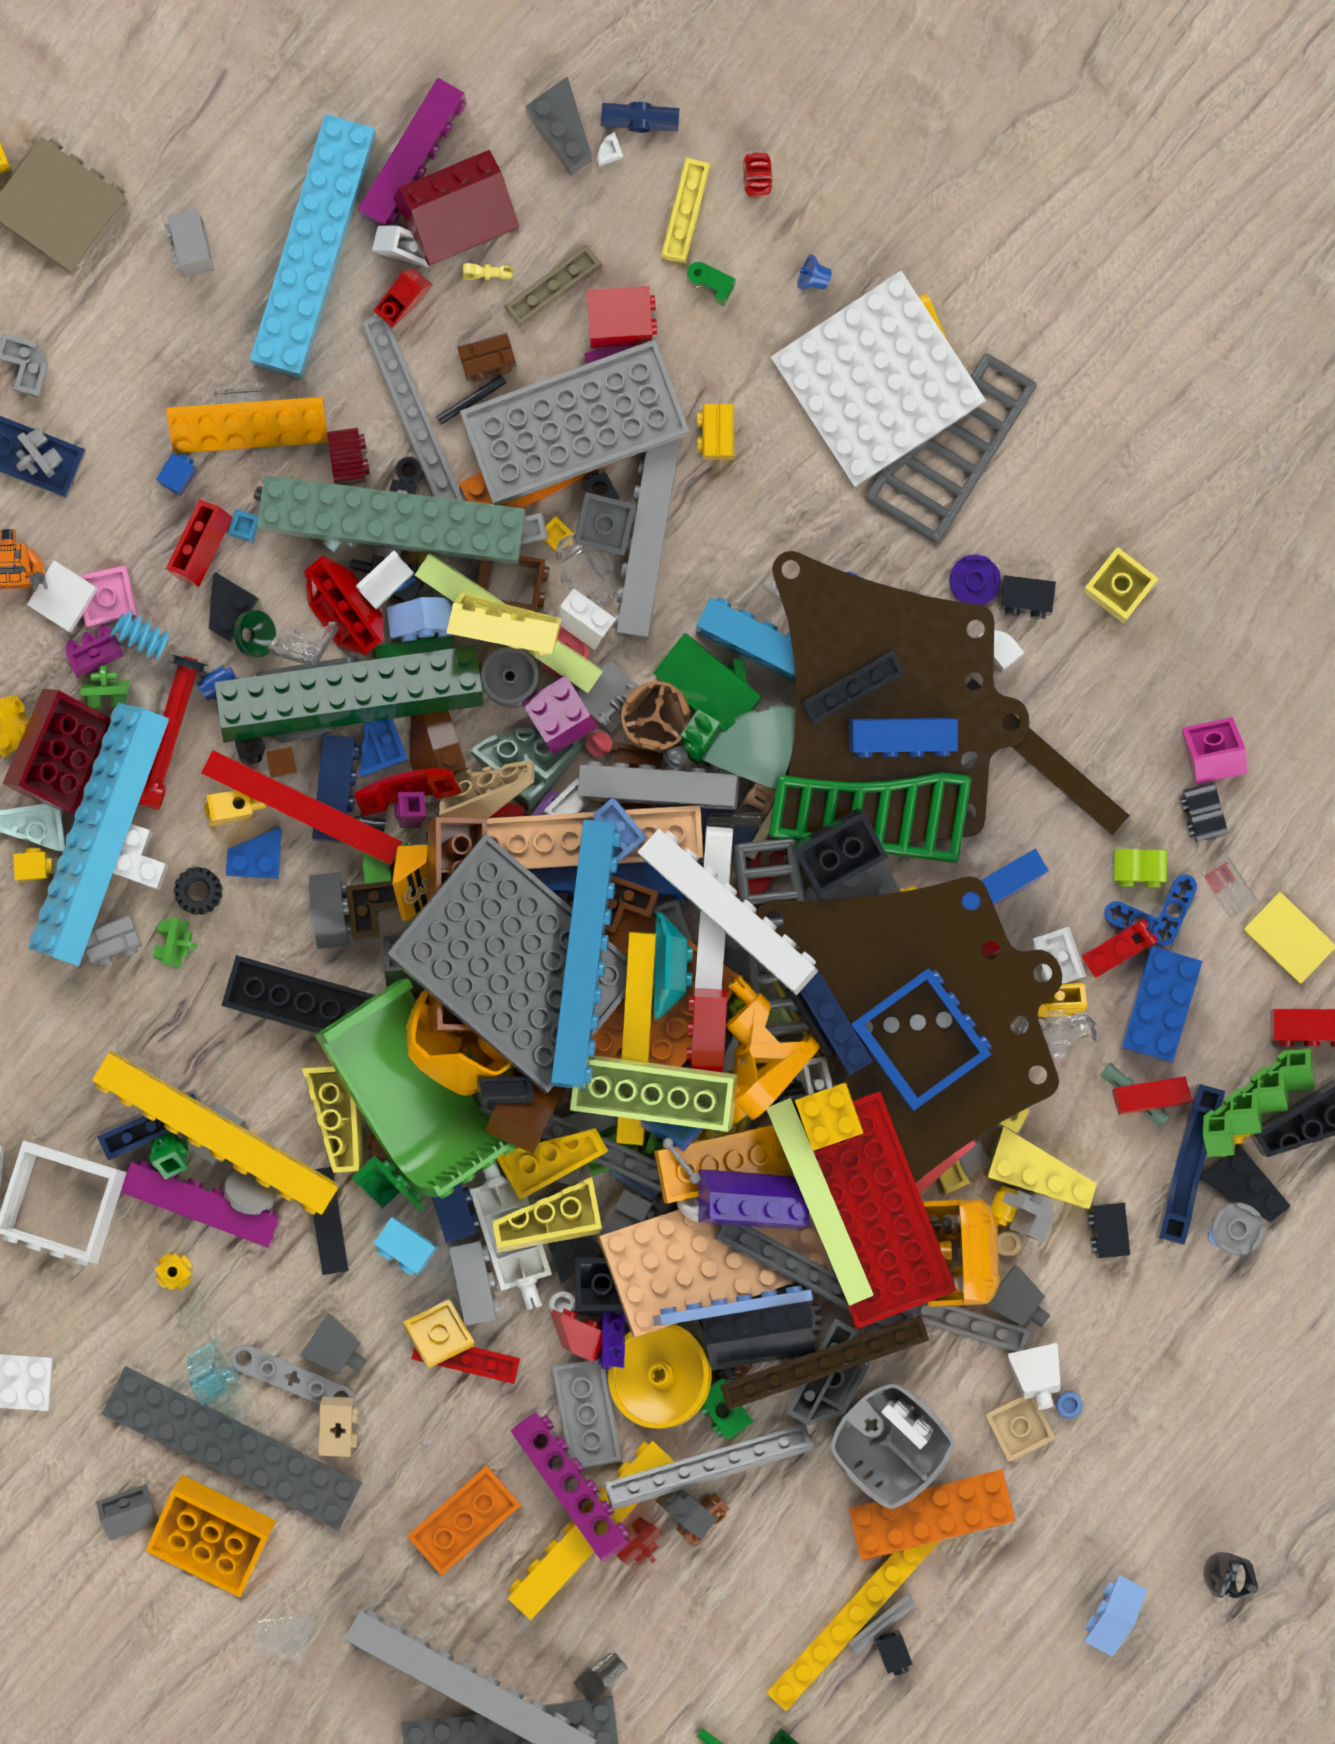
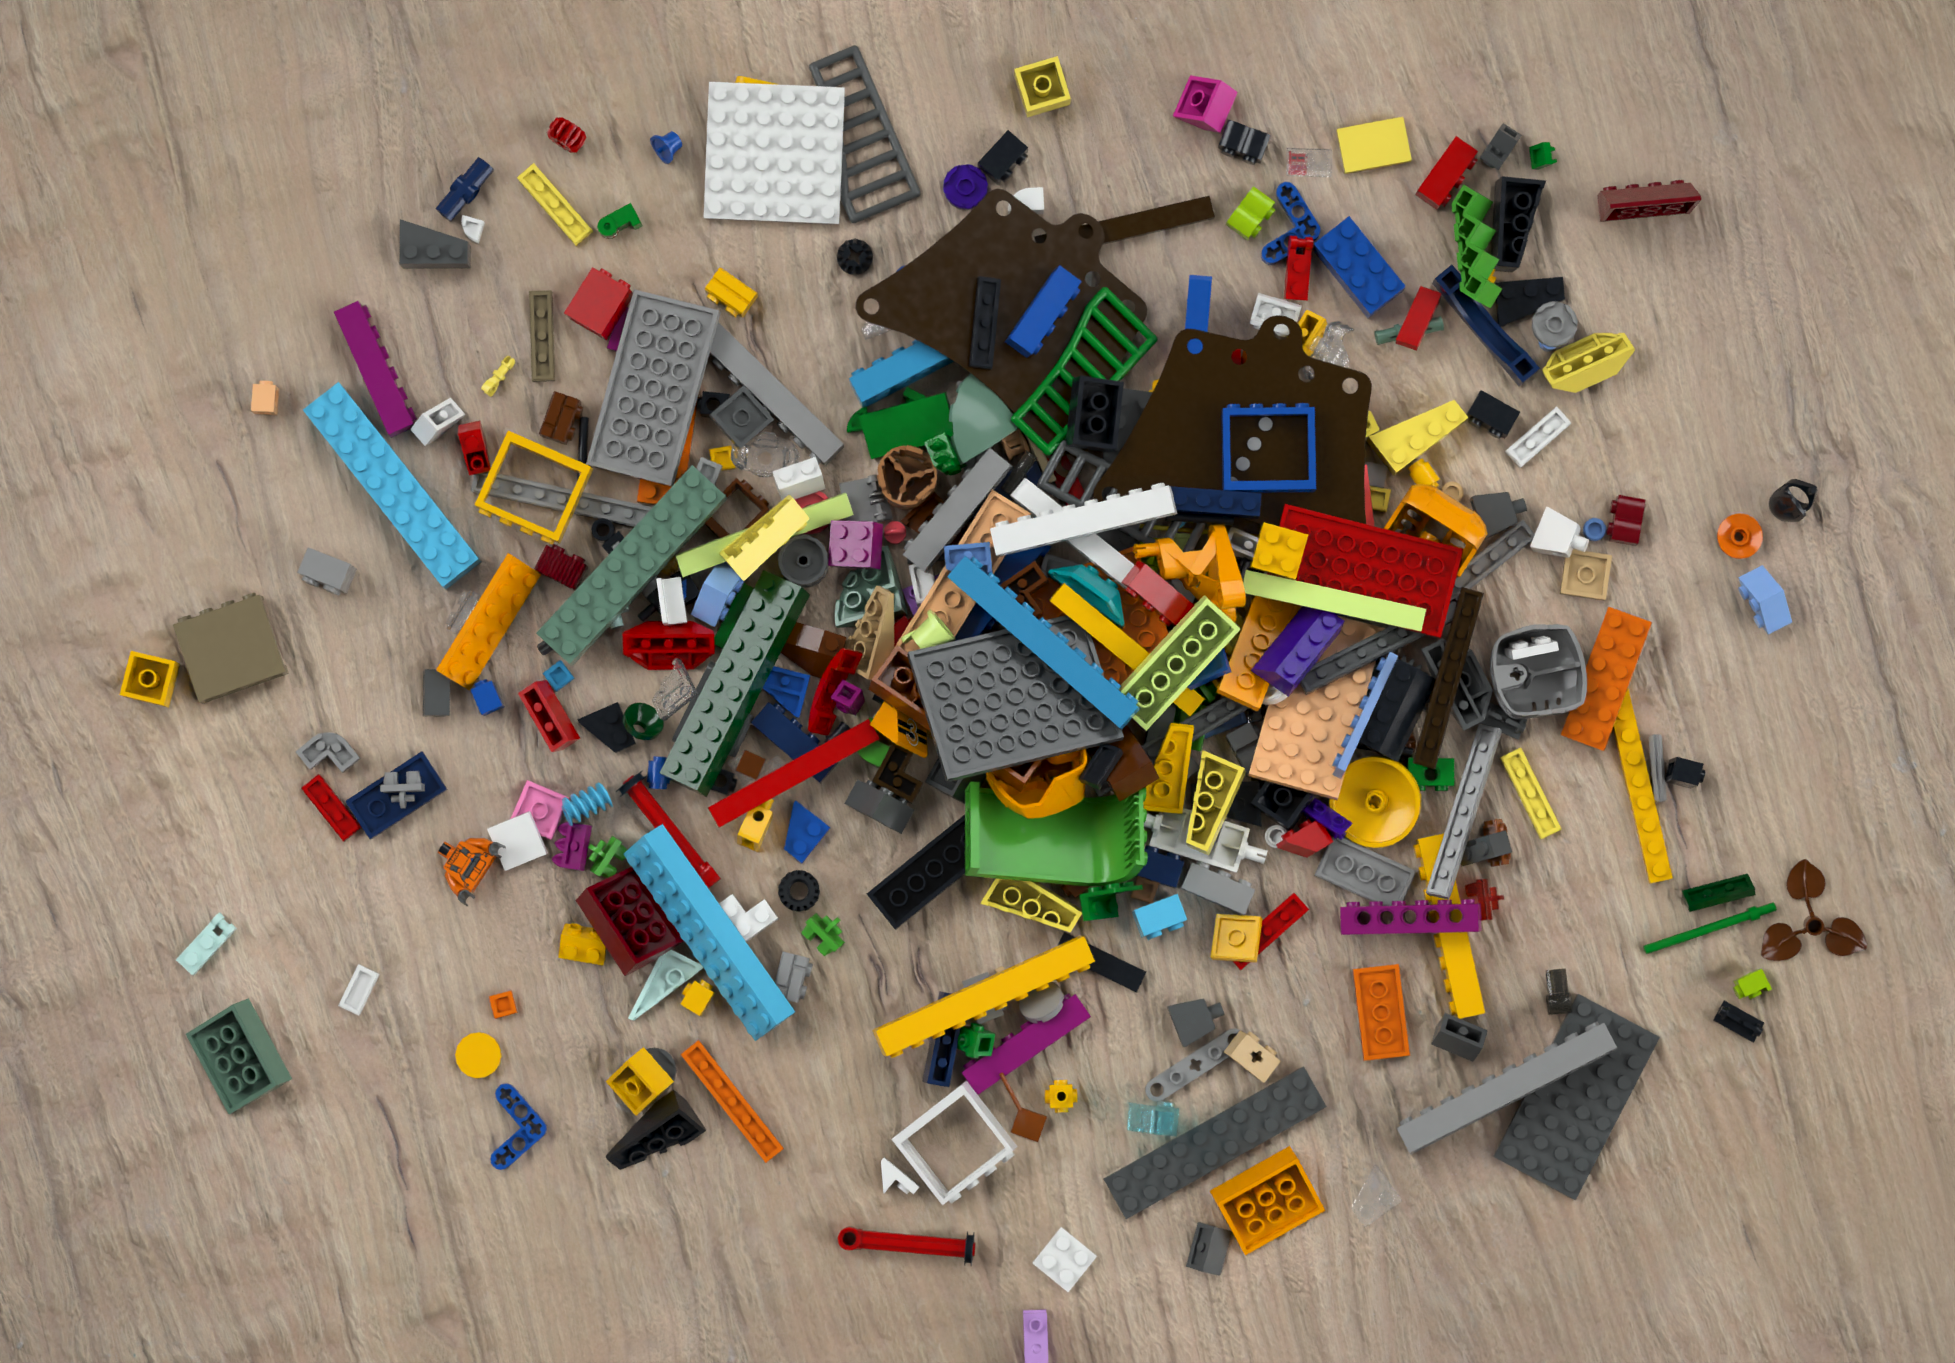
camera: 55 degrees left, 0 degrees up
(128, 1256) = (1027, 1123): none -> dark orange piece
(146, 424) = (435, 694): none -> dark grey hinge
(313, 72) = (265, 398): none -> light nougat brick
(361, 398) = (527, 527): none -> yellow window
(424, 1219) = (1148, 892): none -> medium nougat tile
(457, 207) = (438, 363): dark red slope -> none
(491, 1611) = (1459, 1037): none -> dark grey brick
(522, 843) = (930, 632): none -> yellowish green hat
(674, 633) = (854, 423): none -> green tile
(676, 756) = (945, 481): dark grey hinge -> none
(693, 1177) = (1254, 677): light grey hinge -> none
(772, 1518) = (1530, 793): none -> light yellow tile
(821, 1437) = (1497, 718): none -> dark grey hinge
(839, 534) = (850, 266): none -> black gear
(1032, 1214) = (1443, 460): light grey brick -> none
(1099, 1429) = (1626, 520): none -> dark red brick
(1120, 1289) = (1538, 437): none -> white tile
(1174, 1548) = (1751, 536): none -> orange dish
(1224, 1285) = (1587, 361): none -> light yellow wedge

